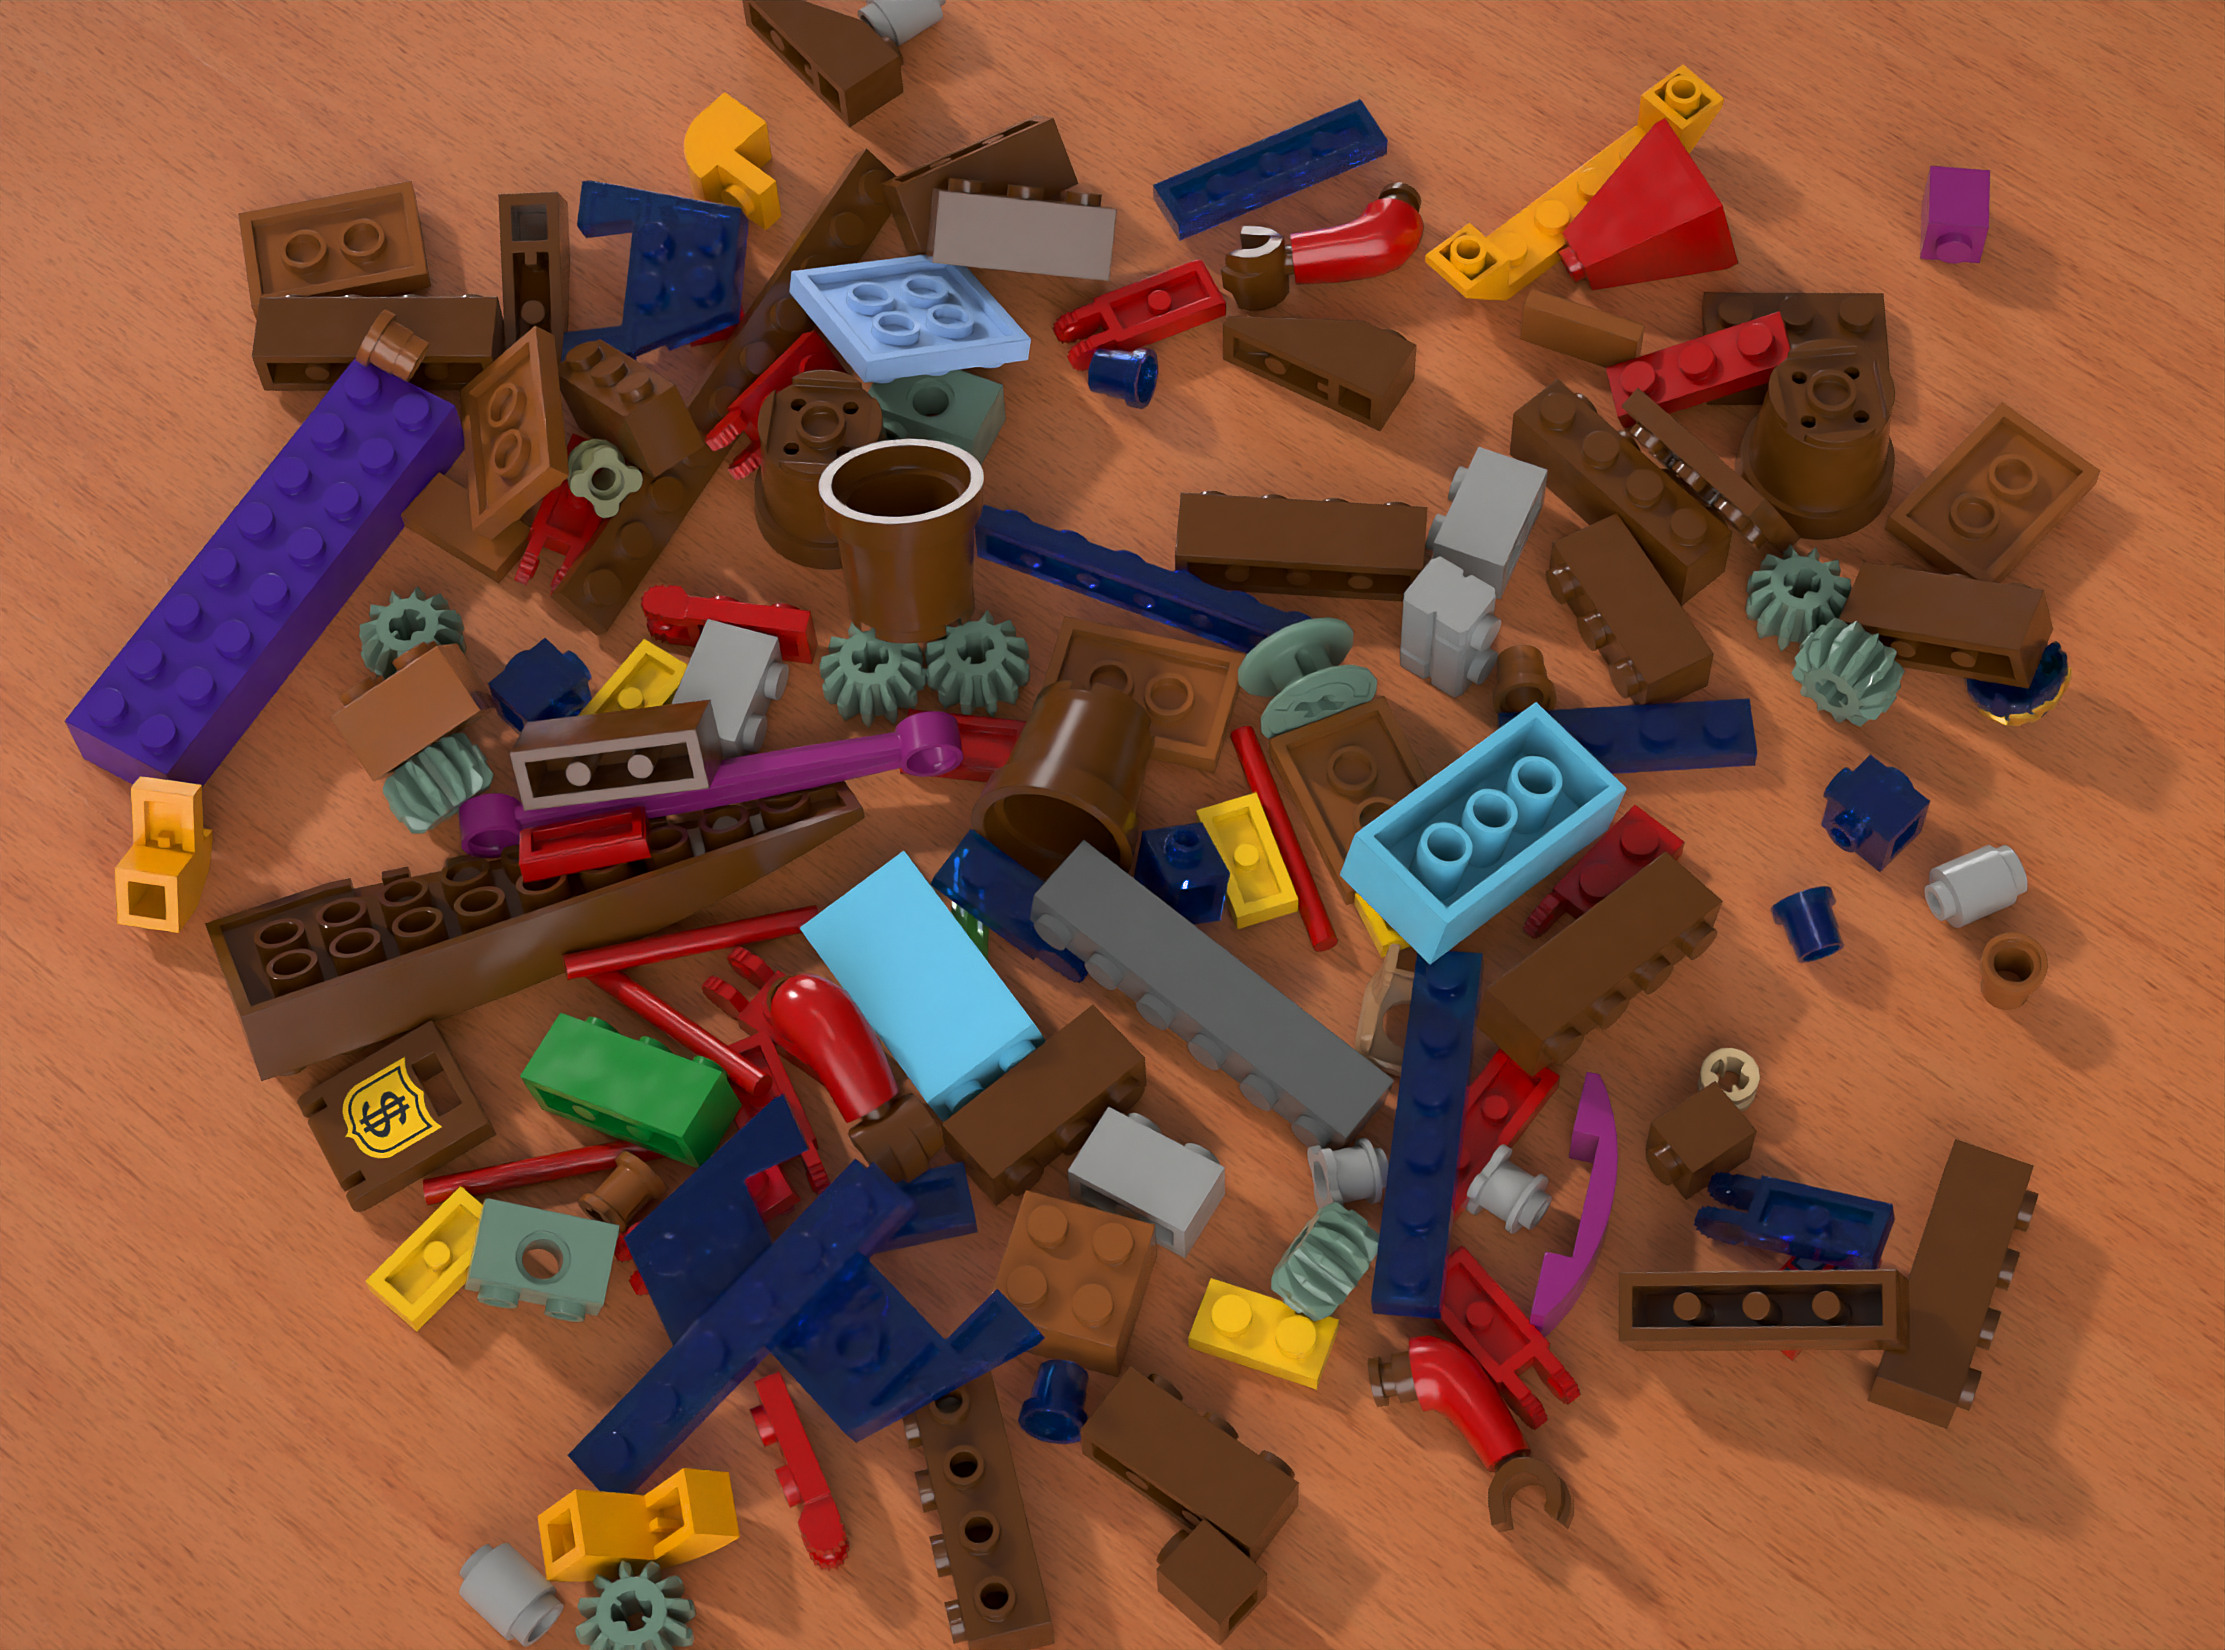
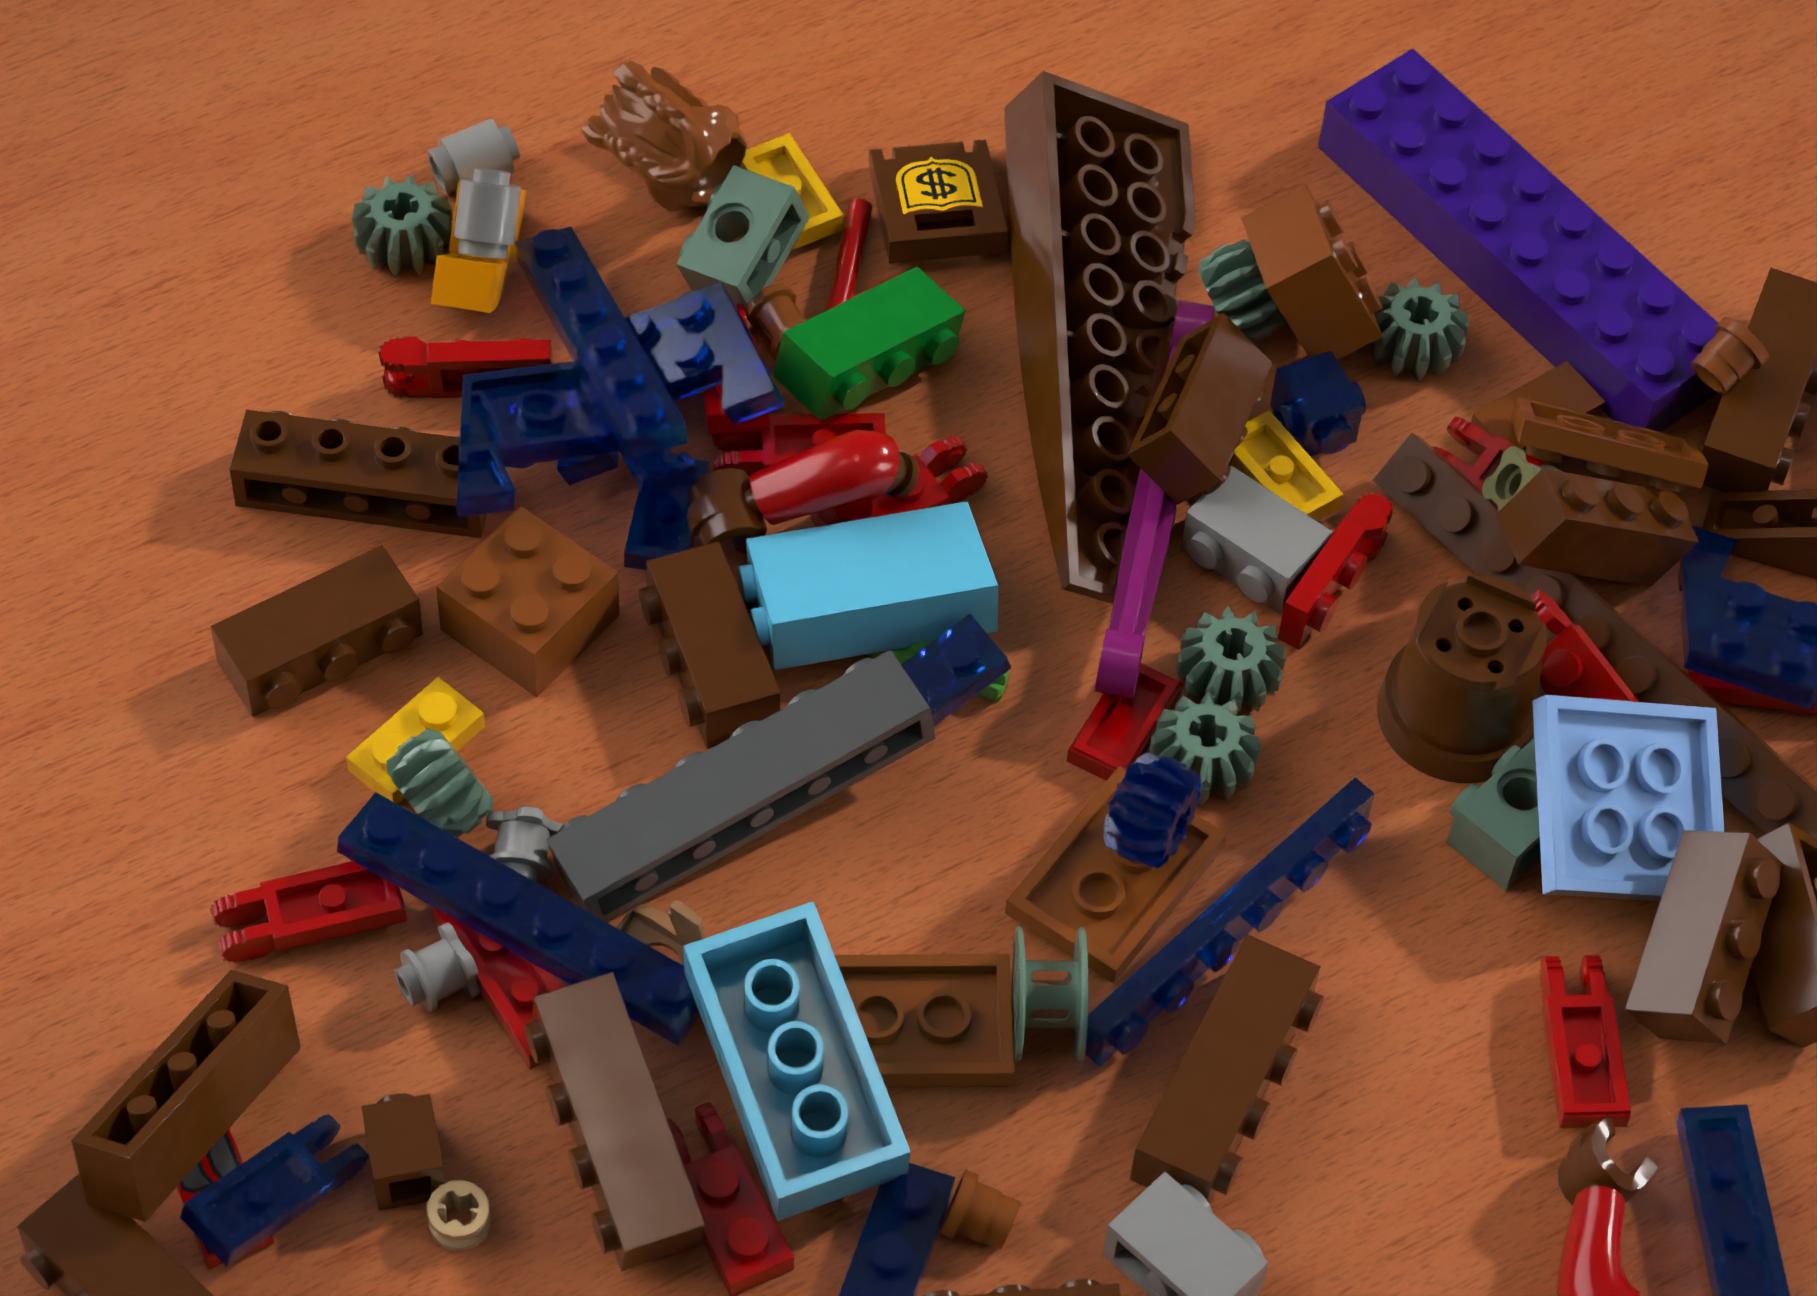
camera: 105 degrees right, 5 degrees down
(169, 857) = (1250, 105): light orange brick -> none
(430, 1380) = (667, 136): none -> dark orange piece
(584, 843) = (1129, 374): red tile -> none
(623, 1501) = (487, 214): none -> light grey brick
(684, 1030) = (917, 399): red bar -> none
(687, 942) = (1005, 442): red bar -> none
(905, 534) = (1331, 664): reddish brown piece -> none
(1056, 1403) = (427, 556): clear blue piece -> none
(1069, 780) = (1013, 747): reddish brown piece -> none
(1096, 646) = (1152, 810): none -> clear blue gear
(1124, 375) = (1505, 995): clear blue piece -> none
(1148, 1178) = (597, 694): light grey brick -> none
(1184, 871) = (890, 820): clear blue brick -> none
(1210, 1580) = (203, 598): reddish brown brick -> none
(1258, 877) = (889, 895): yellow plate -> none
(1262, 782) = (897, 942): red bar -> none
(1329, 361) = (1433, 1203): reddish brown slope -> none
(1449, 628) = (1055, 1142): light grey brick -> none
(1458, 1387) = (288, 842): piece -> none
(1594, 1142) = (454, 1067): magenta slope -> none

